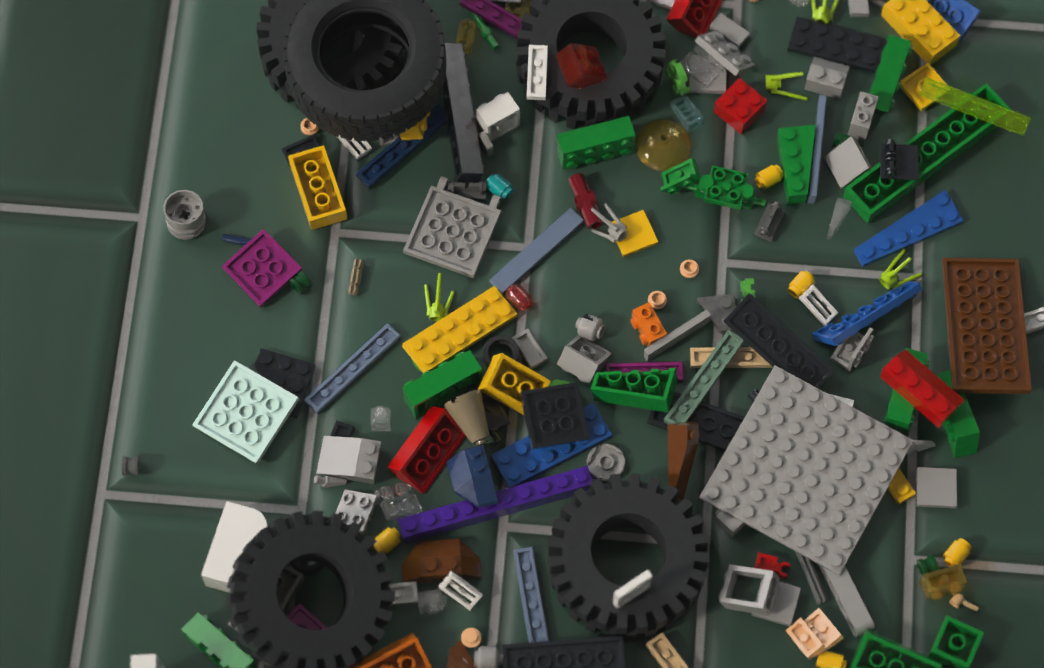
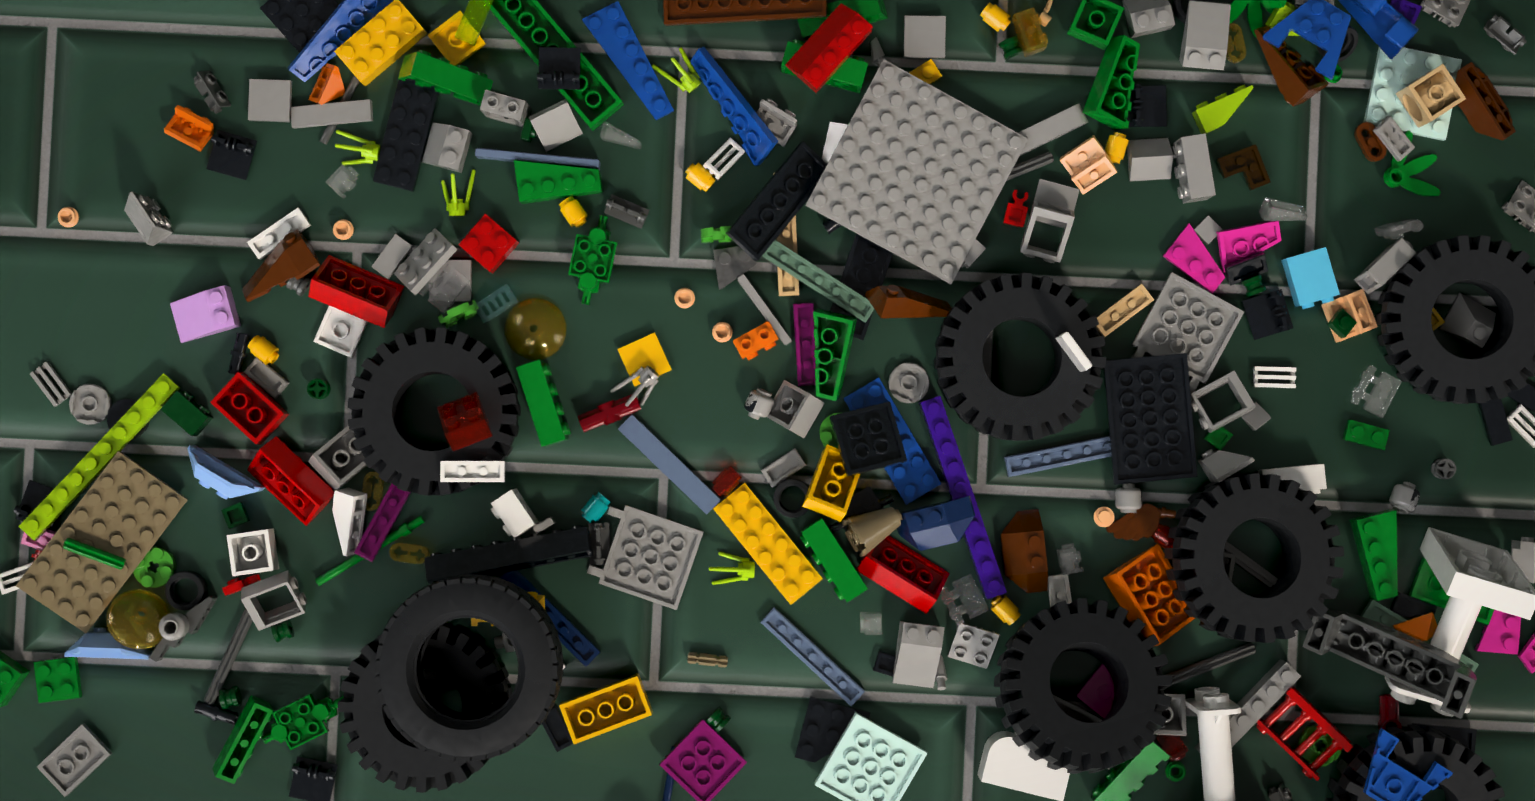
camera: 90 degrees left, 20 degrees up
(448, 580) = (1056, 526): white tile -> none
(680, 177) = (579, 308): green bracket -> none

